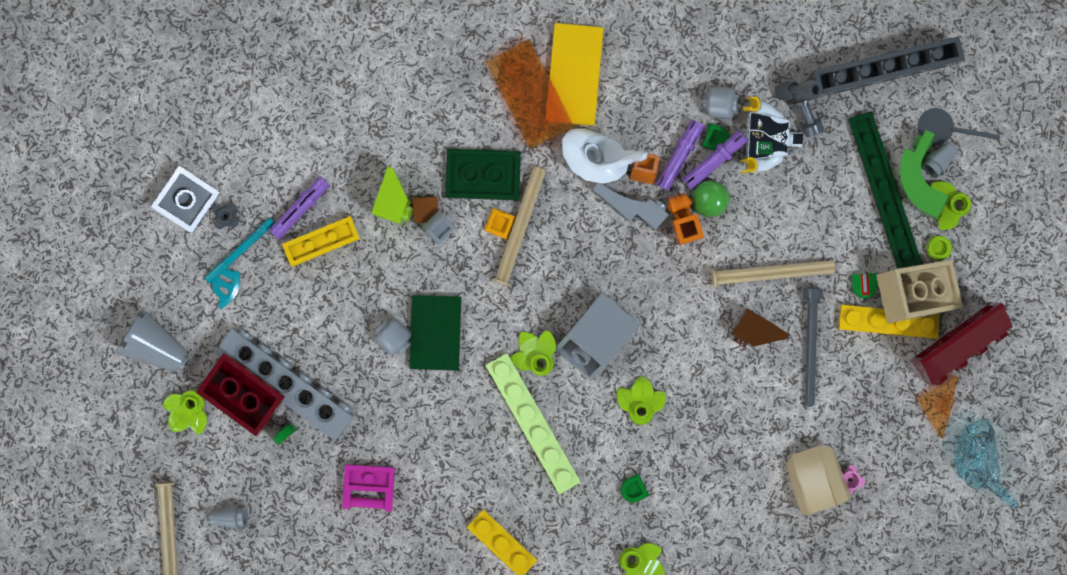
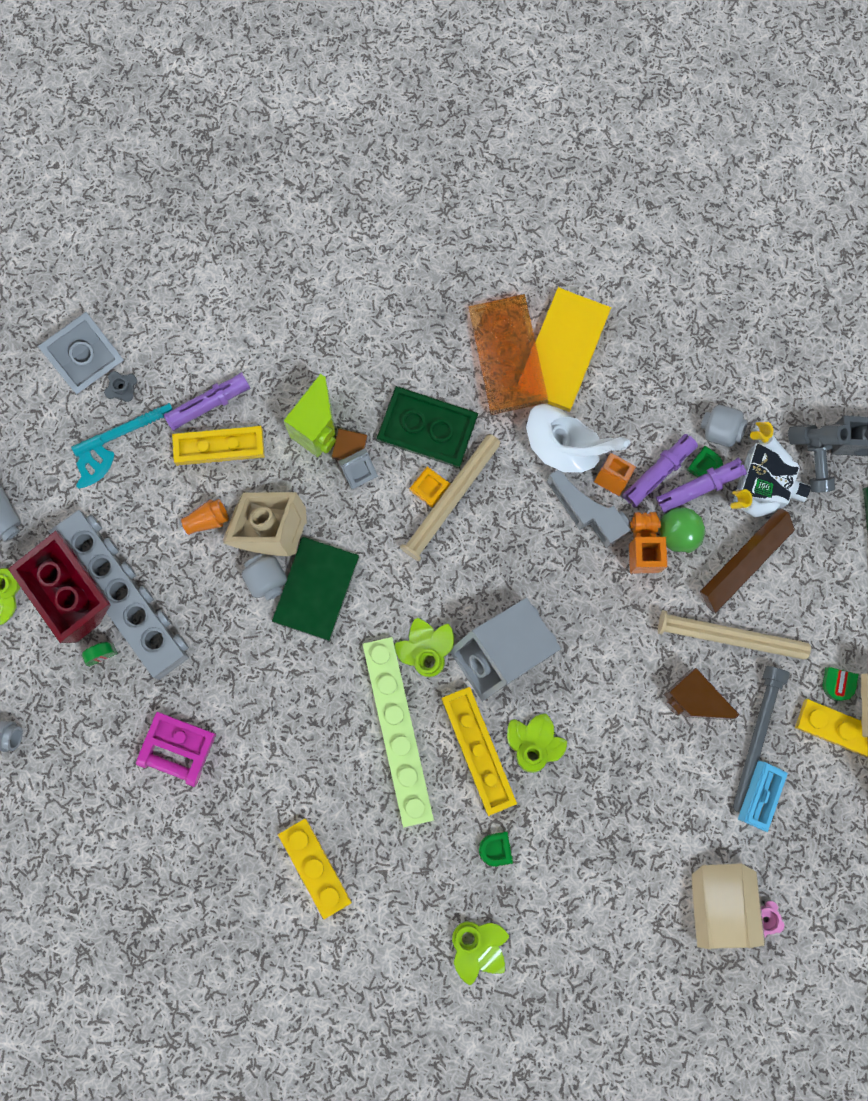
camera: 10 degrees right, 10 degrees down
(331, 302) = (206, 517): none -> orange cone
(380, 294) = (267, 523): none -> tan slope
(599, 420) = (479, 751): none -> yellow plate
(768, 208) = (747, 560): none -> reddish brown tile
(822, 389) = (759, 795): none -> medium azure tile

